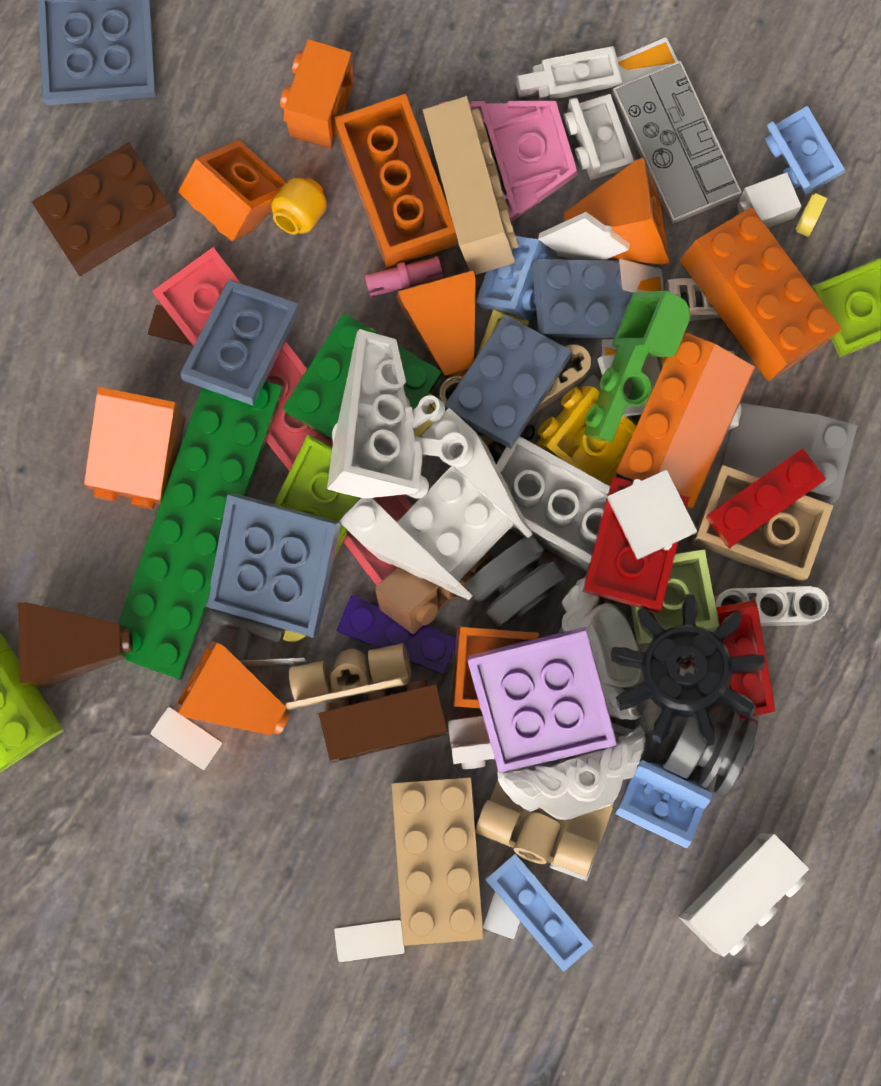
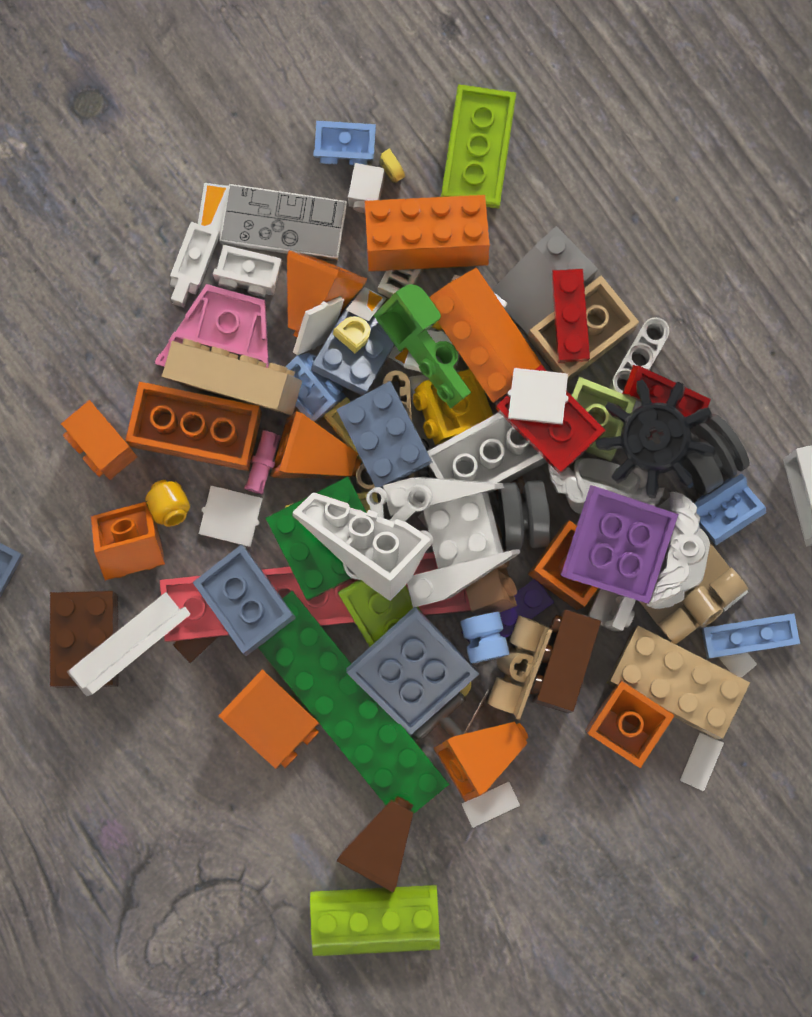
camera: 60 degrees left, 0 degrees up
(120, 250) = (127, 644): none -> white fence
(327, 280) = (230, 516): none -> white piece
(355, 619) = (484, 637): none -> light blue wheel
(356, 833) = (629, 723): none -> orange slope
(599, 281) = (353, 333): none -> light yellow tile

